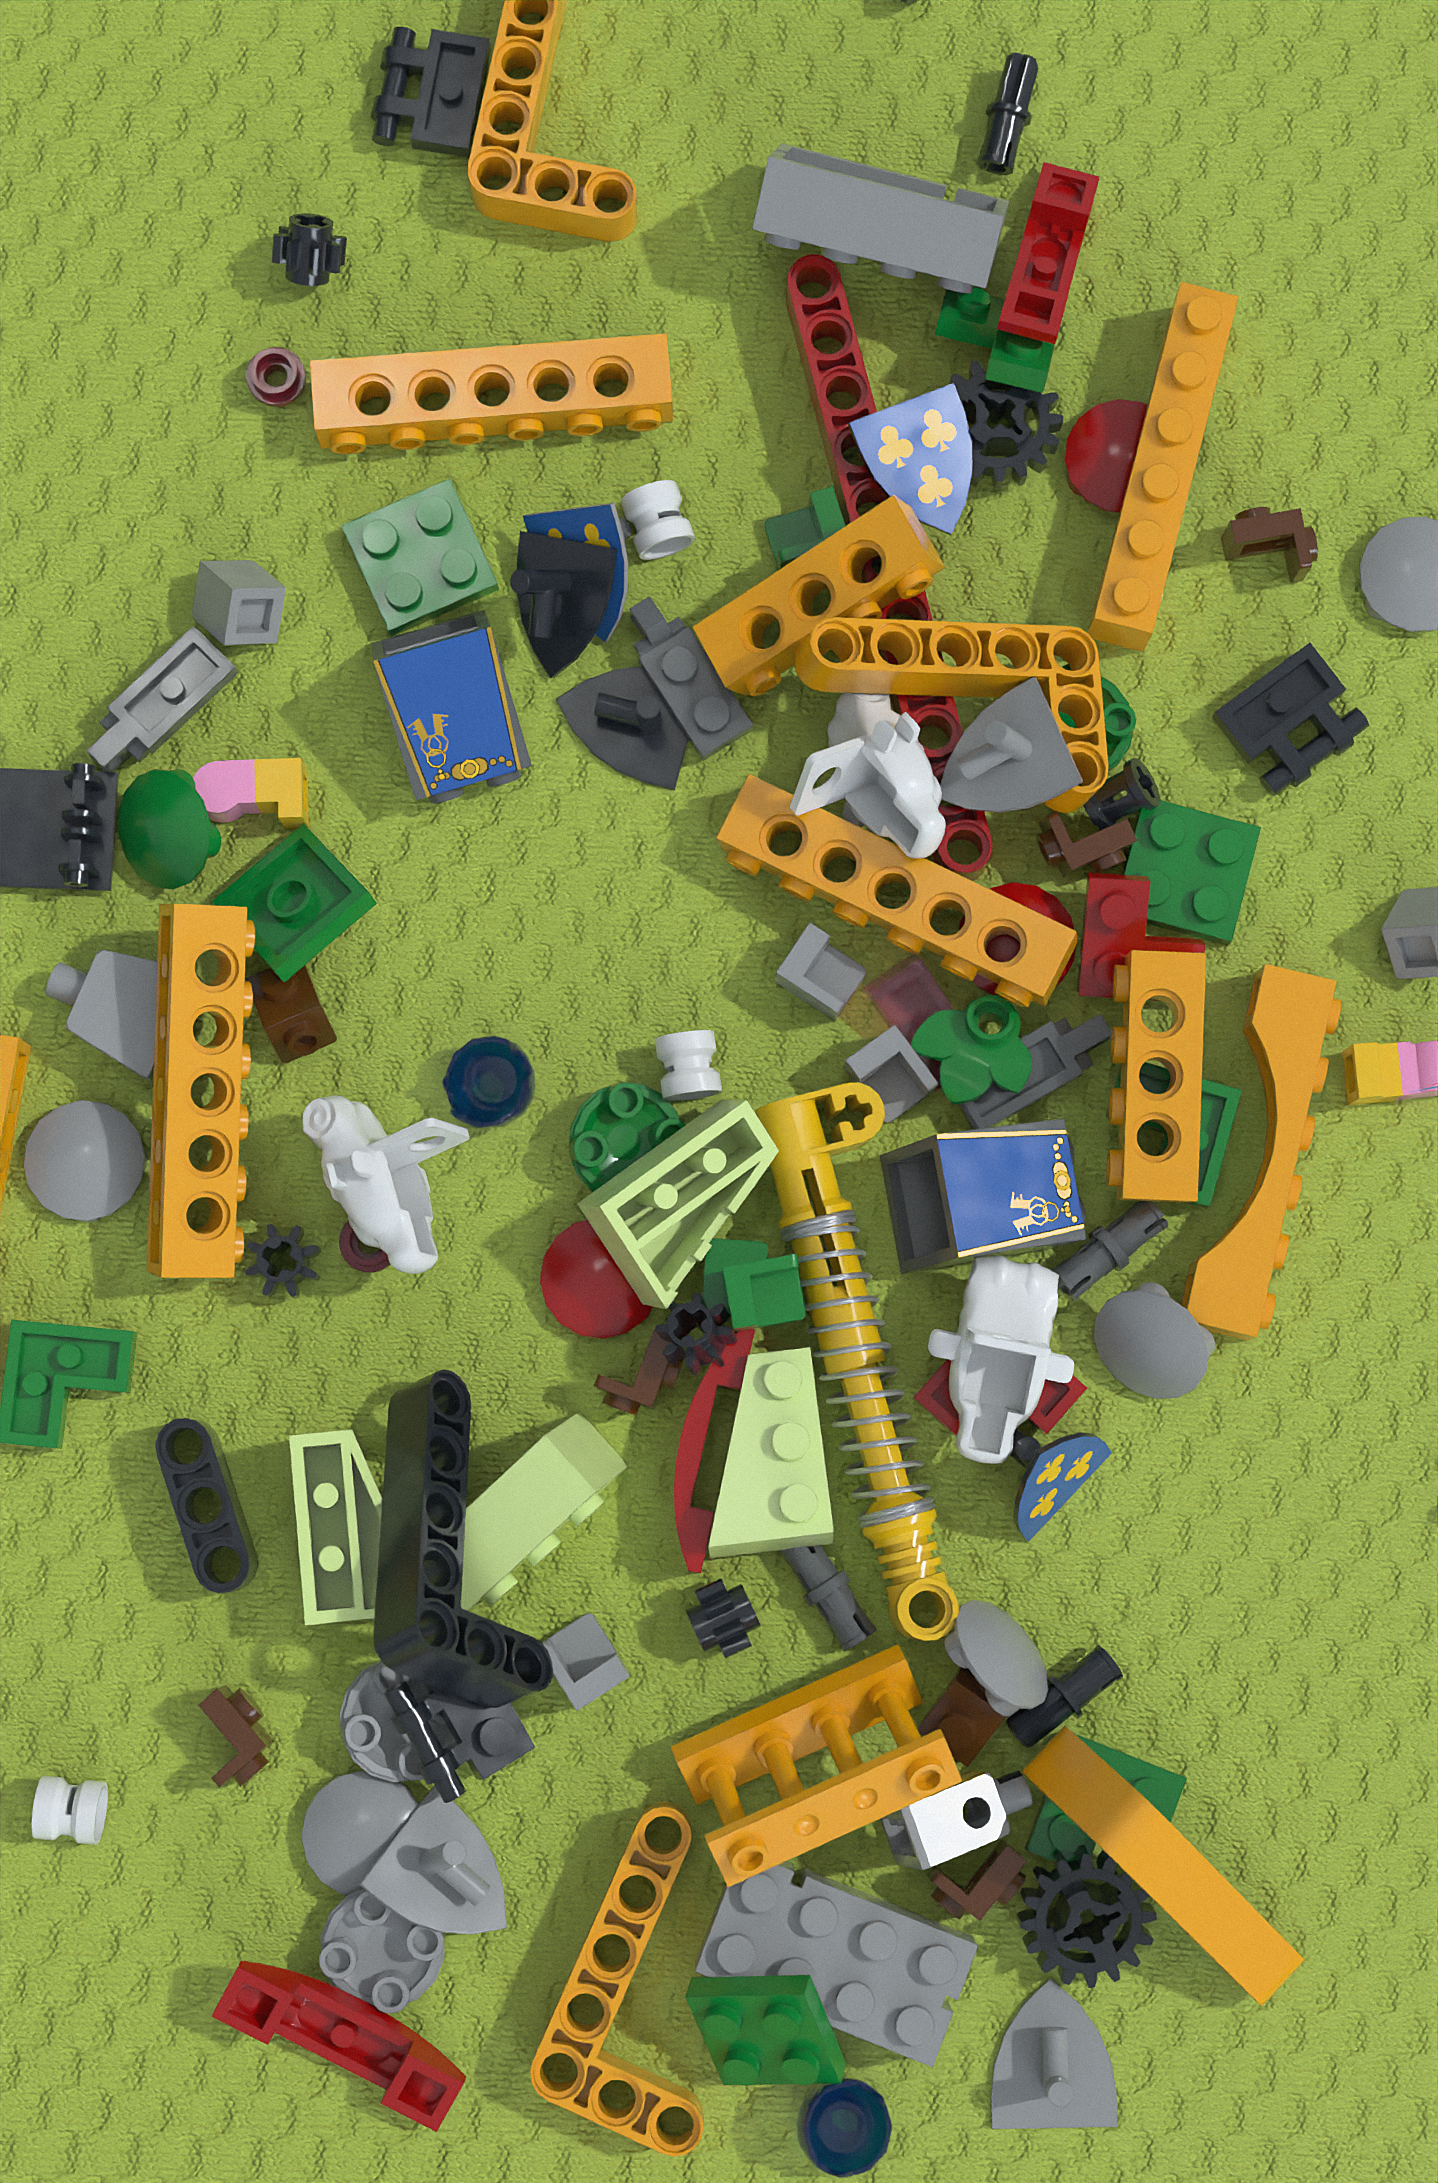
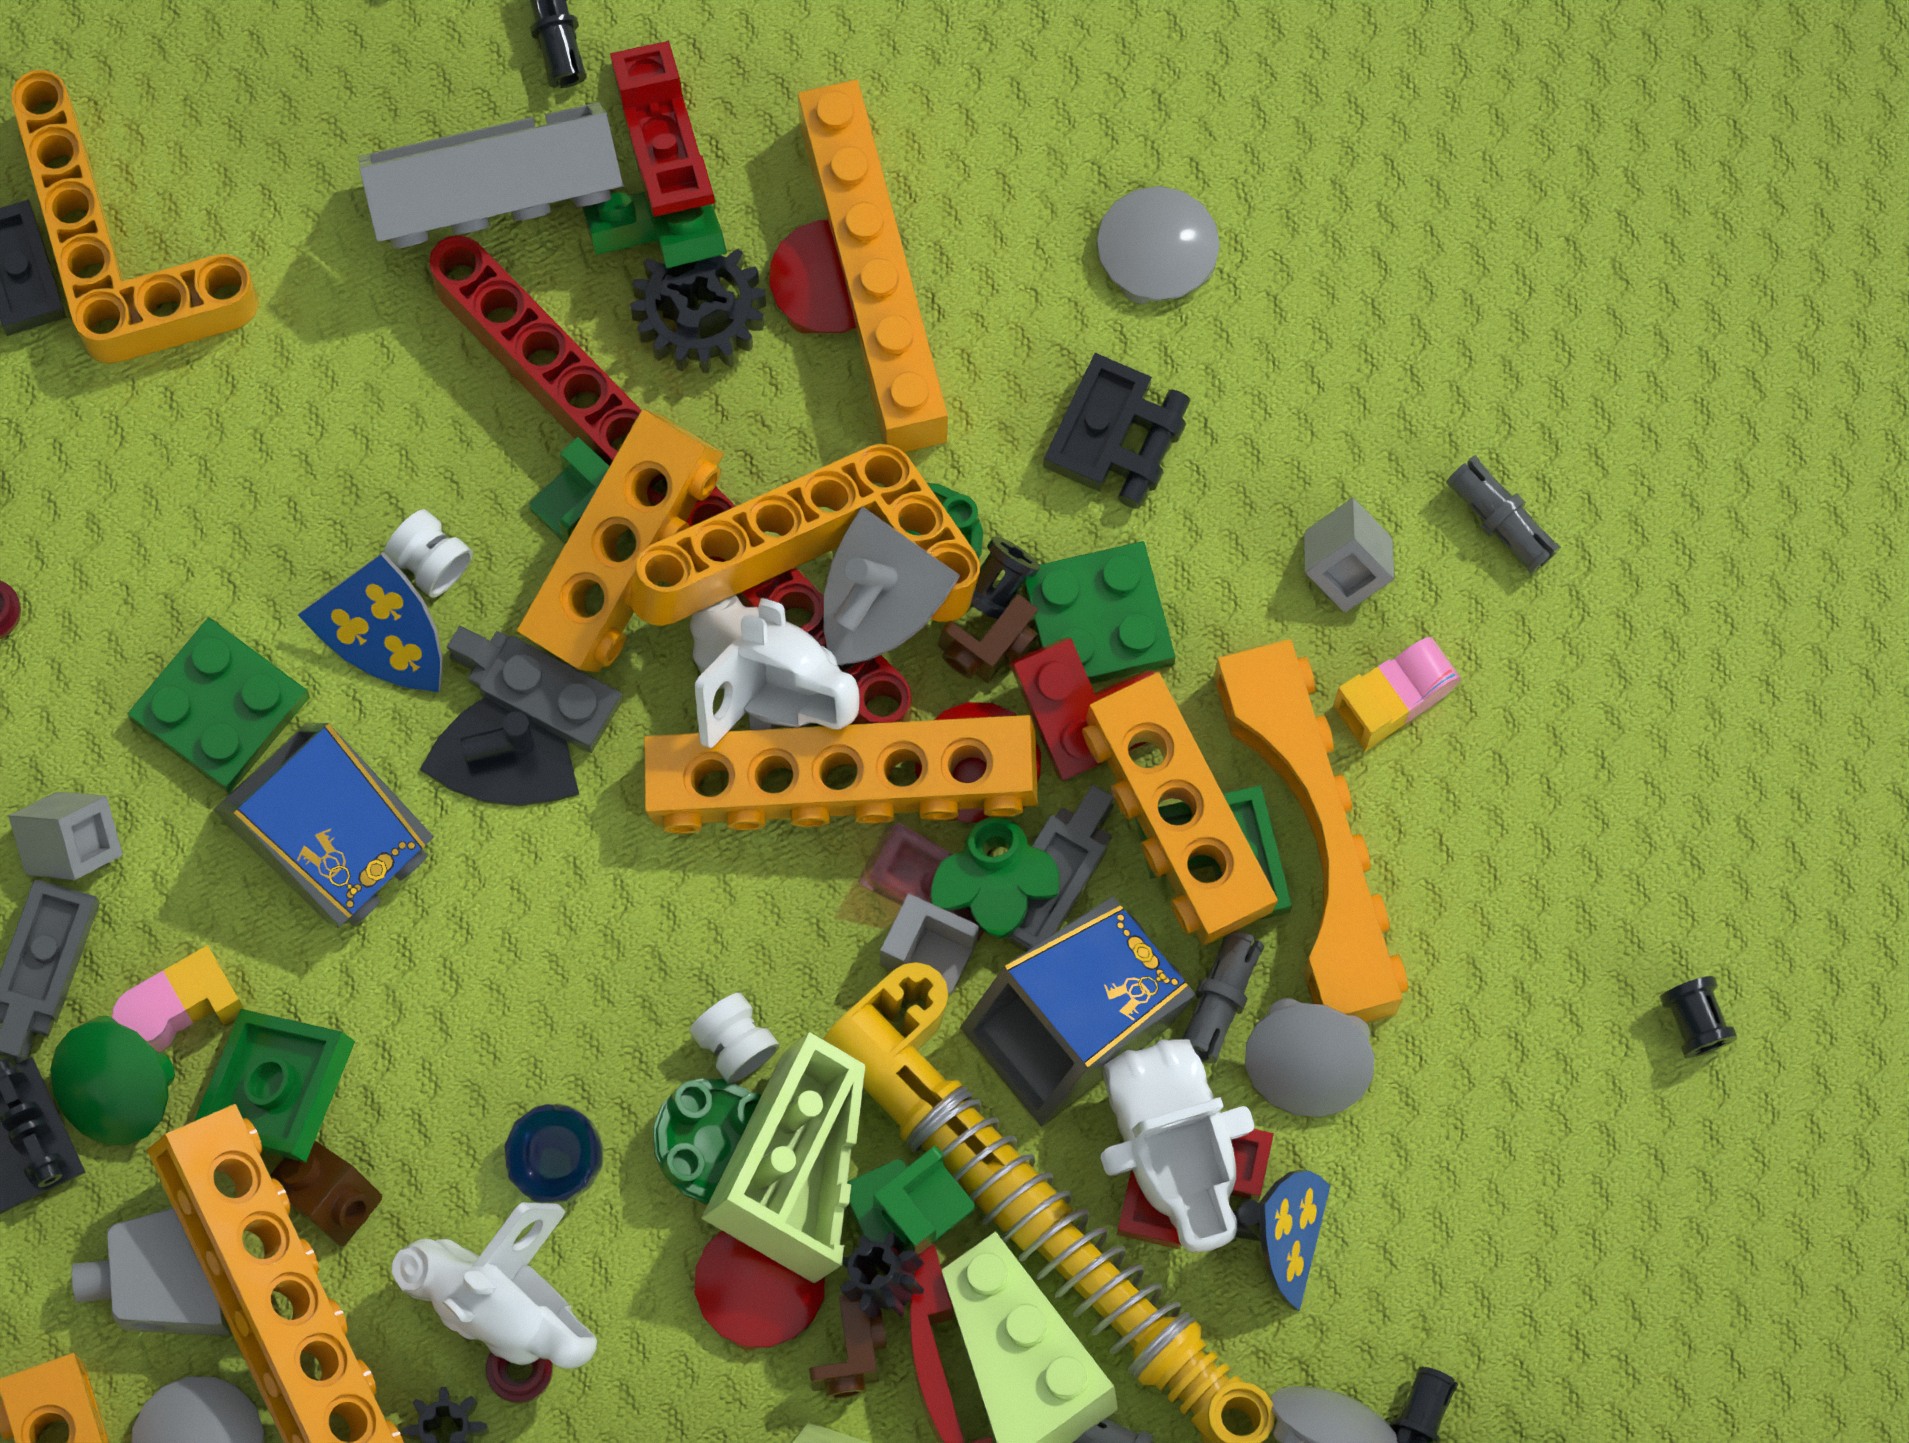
camera: 30 degrees left, 10 degrees down
(464, 374) = (219, 485): light orange brick -> none
(561, 595) = (375, 668): black shield -> none
(820, 973) = (810, 888): light grey panel -> none
(920, 454) = (645, 364): shield -> none
(1263, 532) = (997, 277): reddish brown bracket -> none

